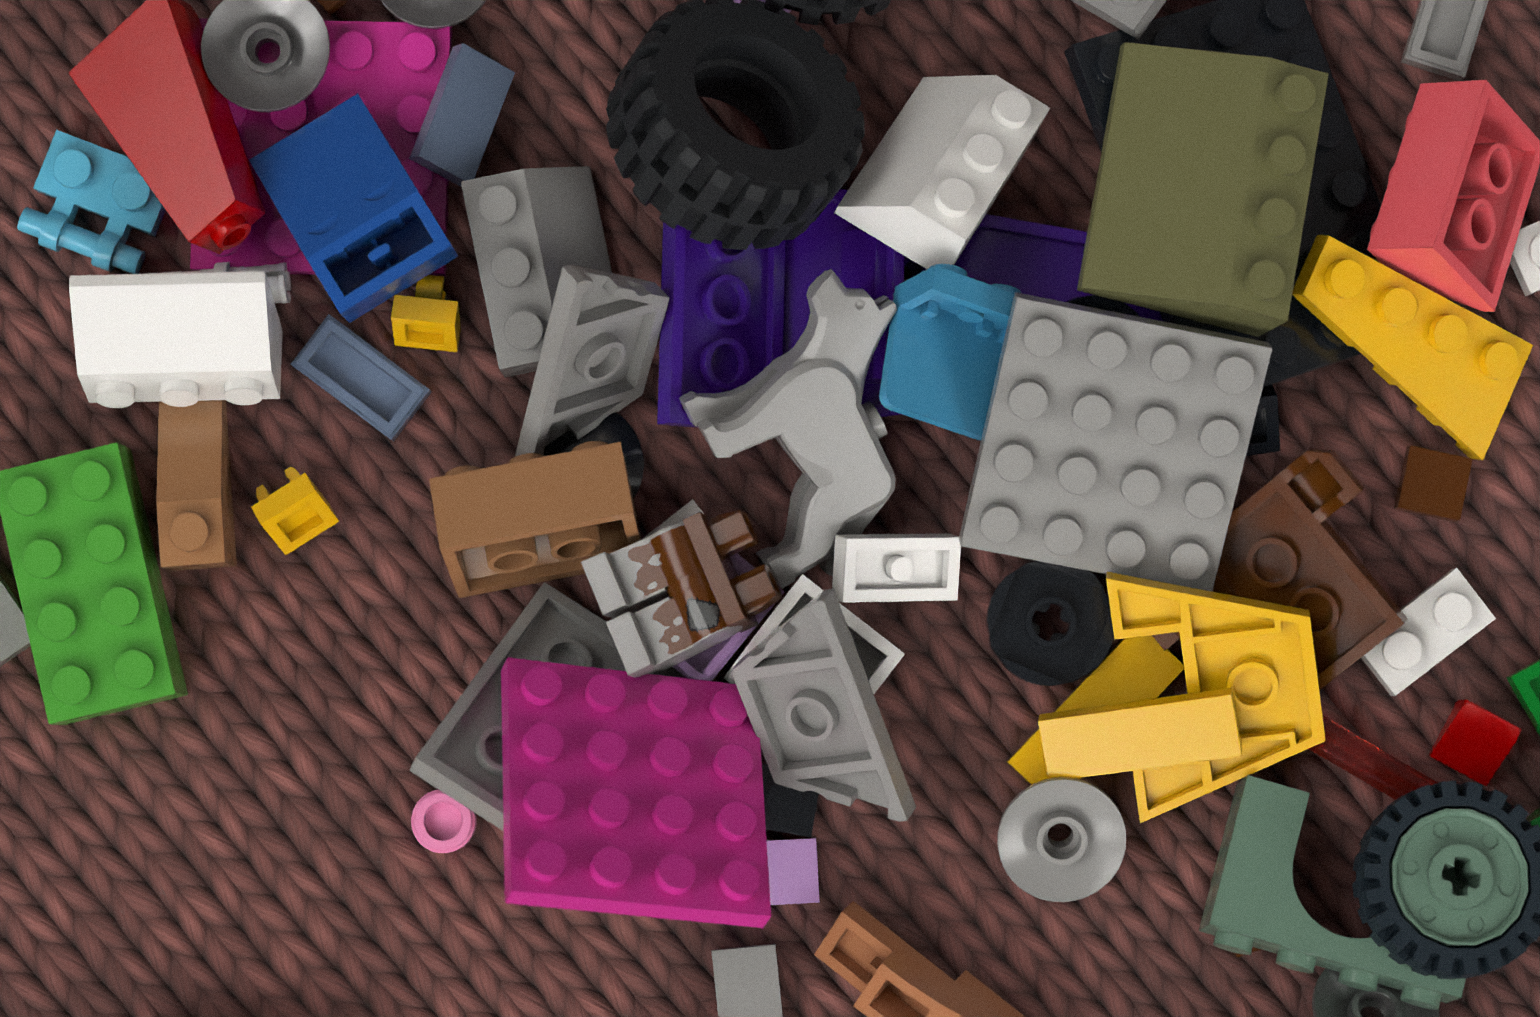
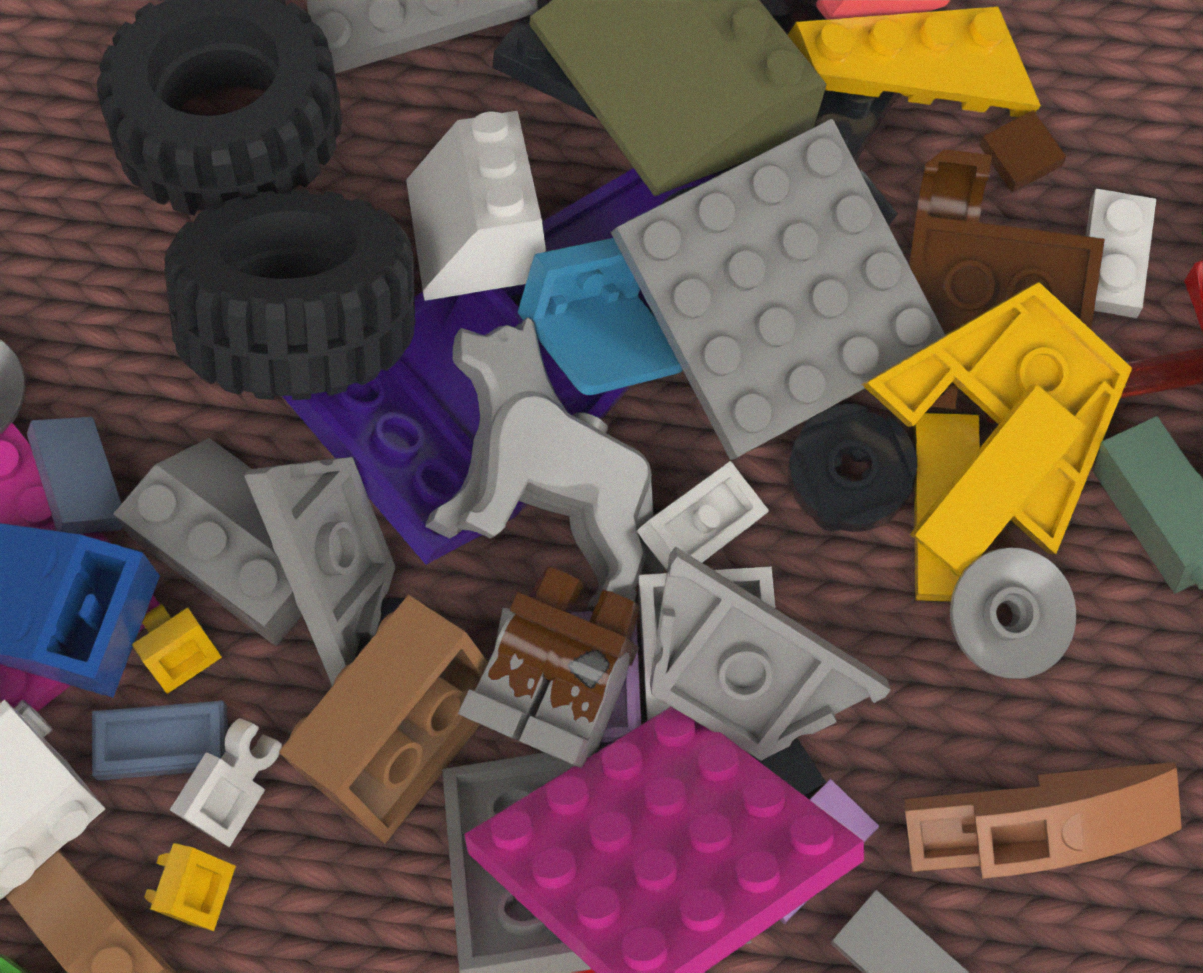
camera: 40 degrees left, 15 degrees down
(375, 462) = (223, 789): none -> white plate

